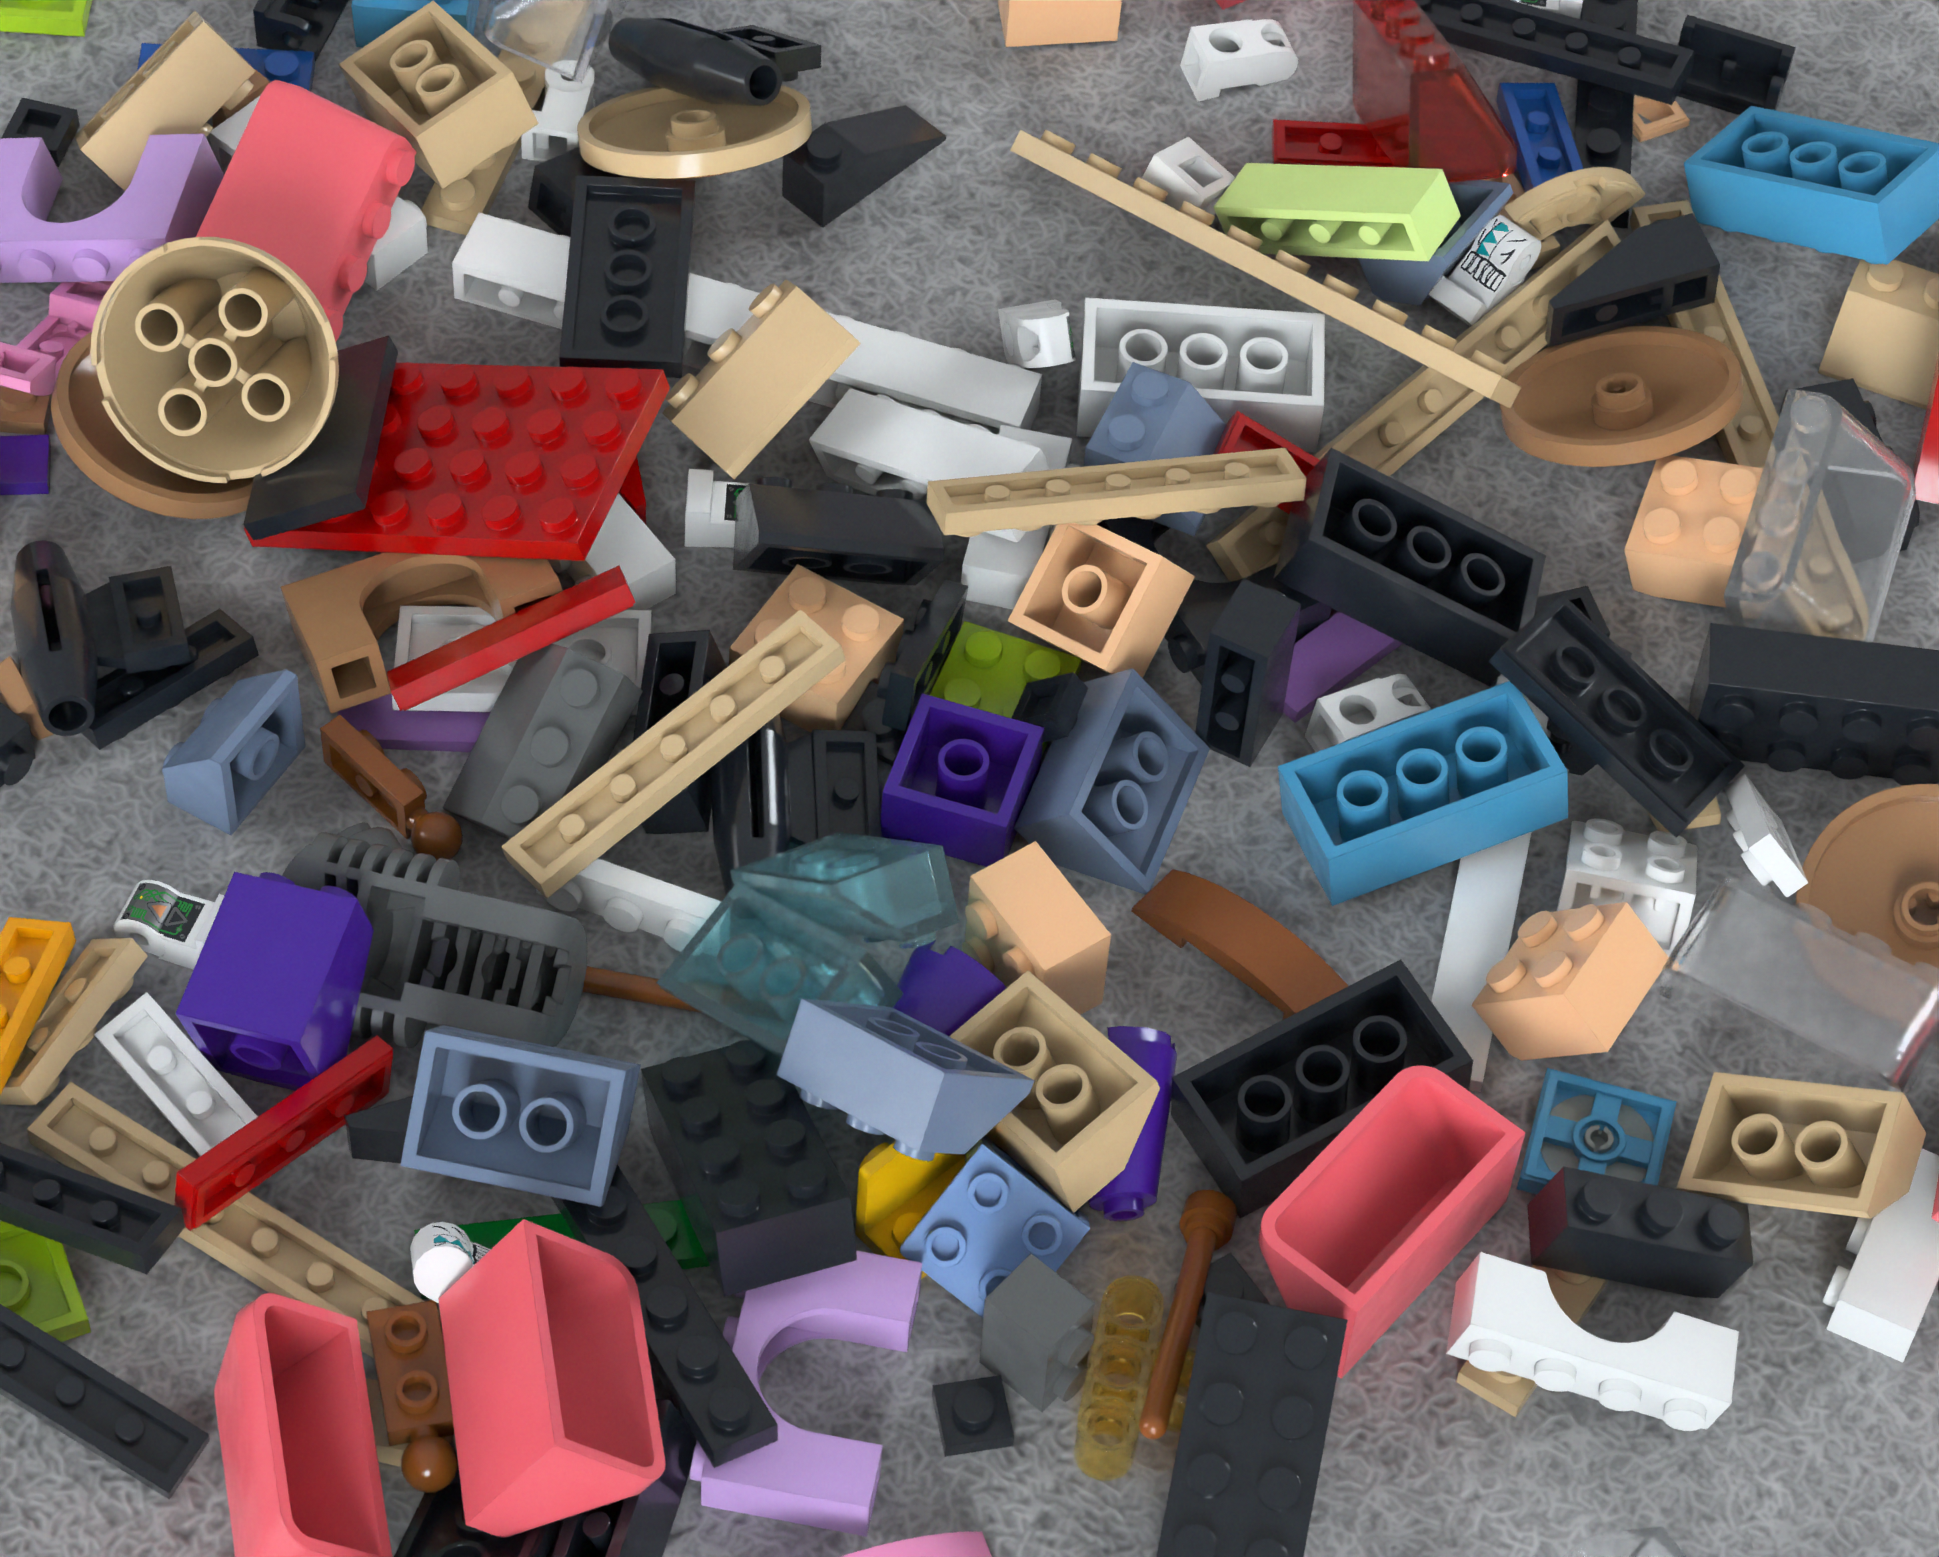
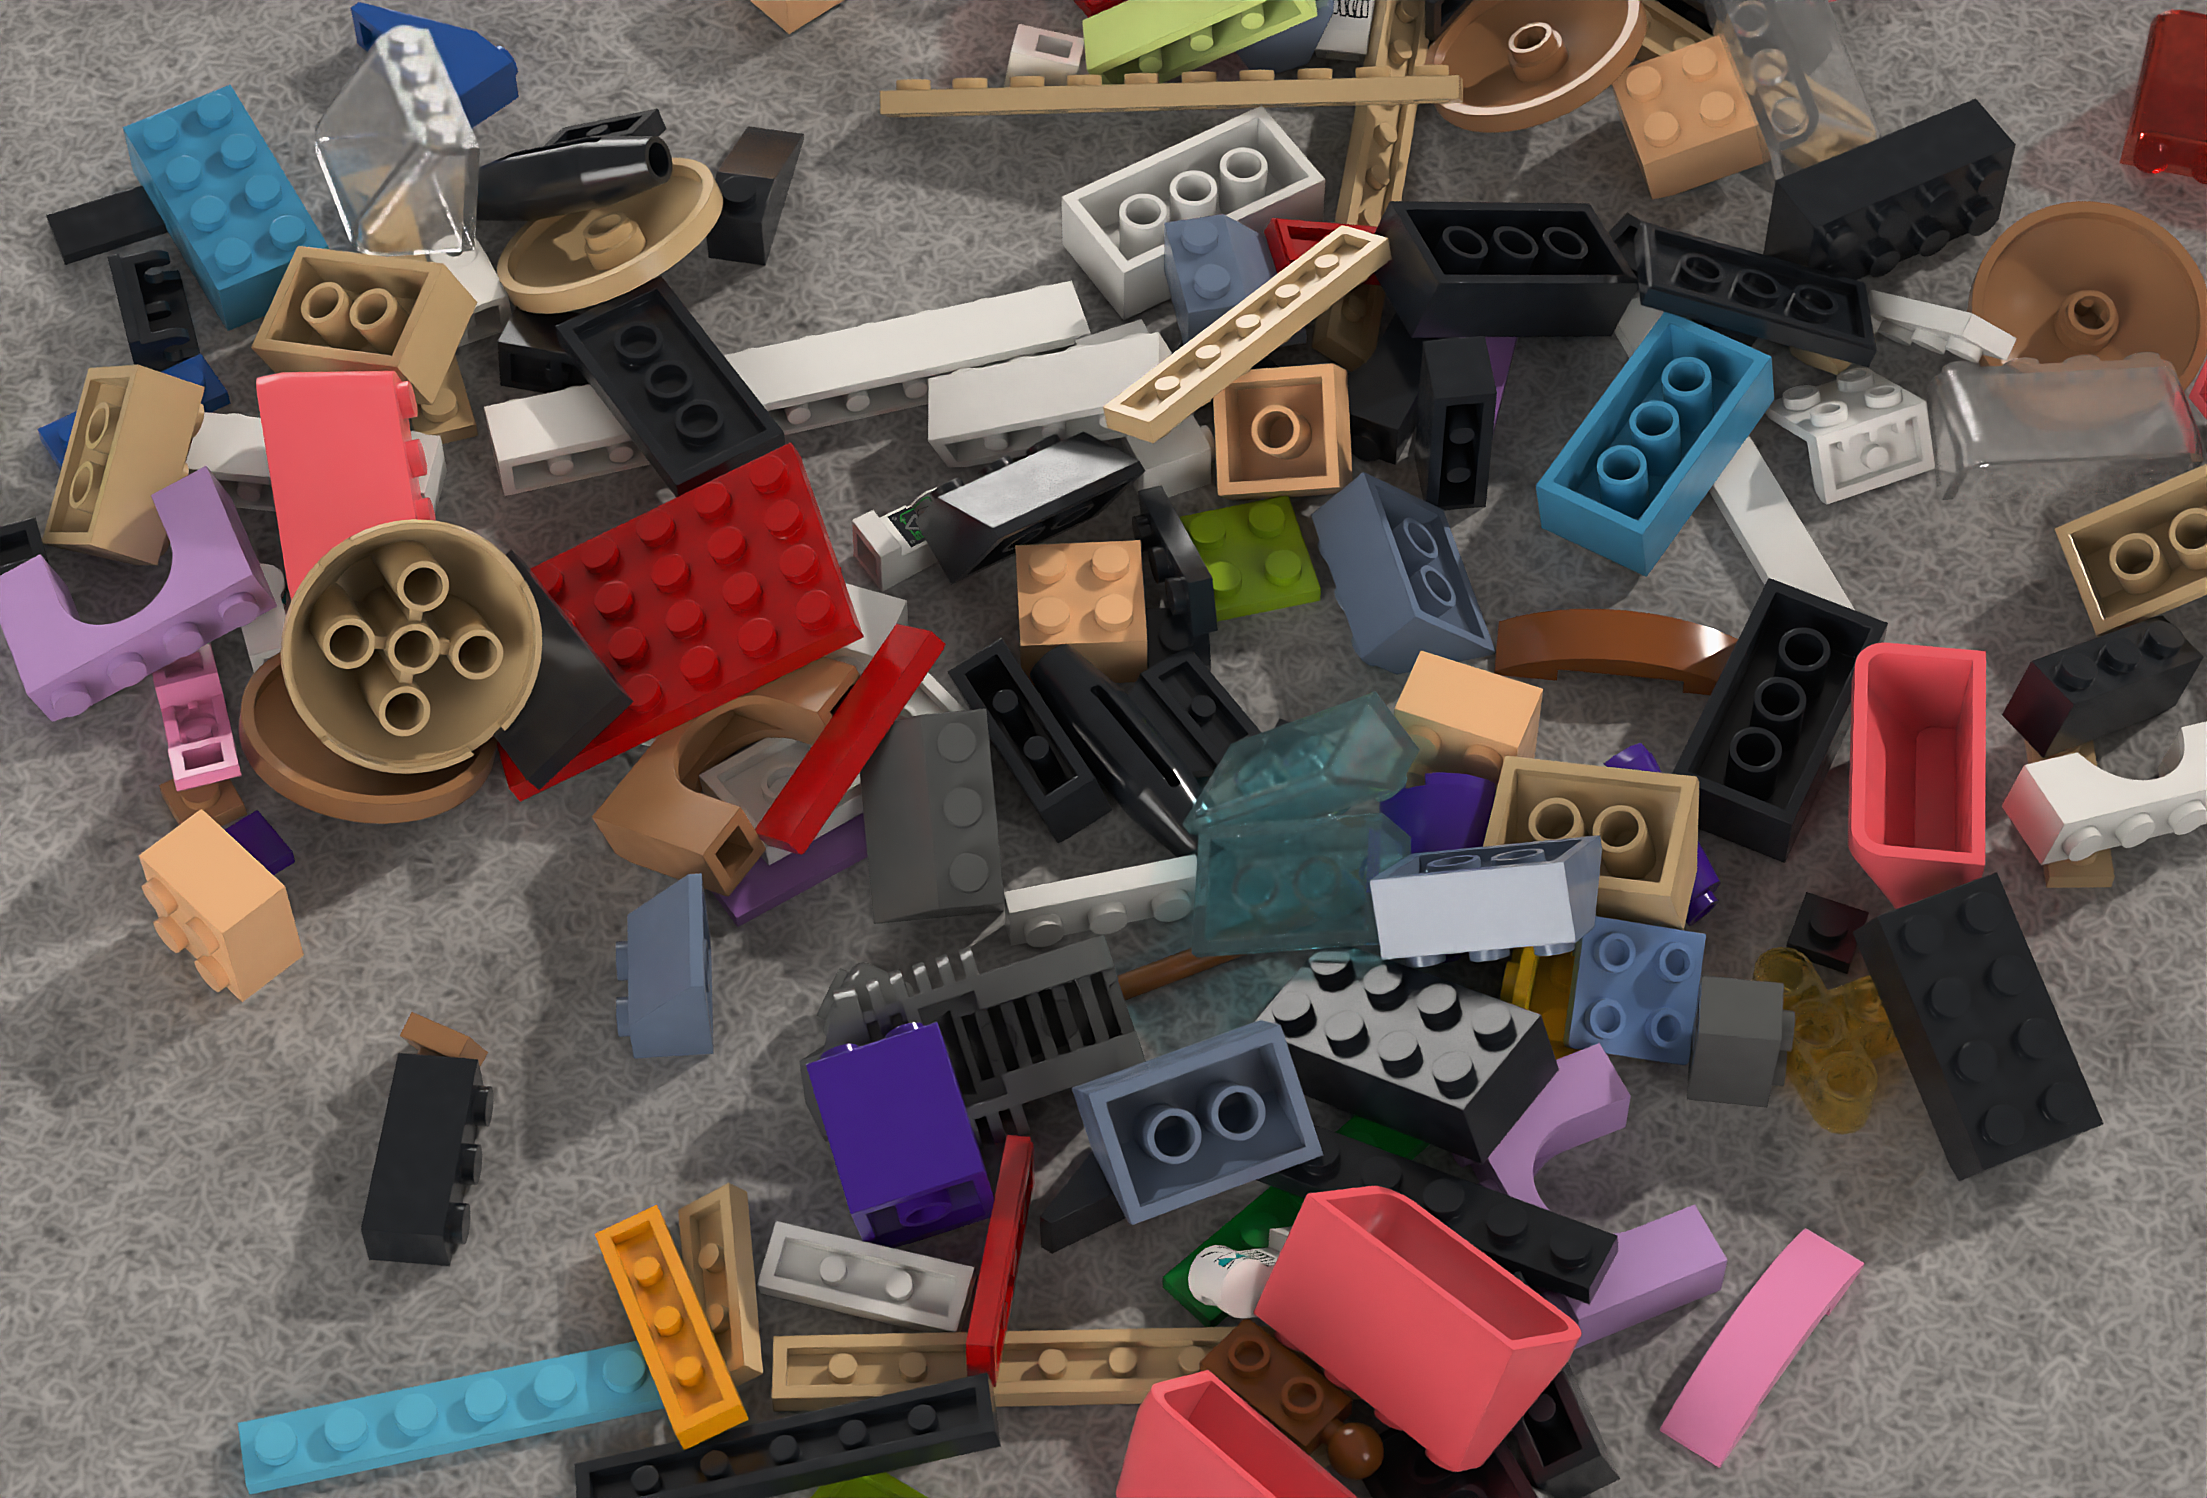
camera: 30 degrees left, 0 degrees up
(69, 634) = (454, 958): black plate -> none
(129, 700) = (543, 958): black plate -> none
(167, 922) = (750, 1150): leg -> none
(390, 791) = (824, 932): dark orange plate -> none
(673, 753) = (1067, 755): tan plate -> none
(759, 376) = (865, 406): tan slope -> none
(961, 780) = (1291, 644): dark purple brick -> none
(972, 1415) = (1721, 1142): black plate -> none
(1037, 334) = (1043, 249): white leg -> none
(1052, 704) = (1314, 547): black plate -> none
(1206, 1226) = (1773, 882): dark orange piece -> none
(1363, 710) = (1551, 415): white leg -> none
(1570, 981) = (1892, 523): light nougat brick -> none
(1596, 1131) = (2002, 618): dark azure piece -> none

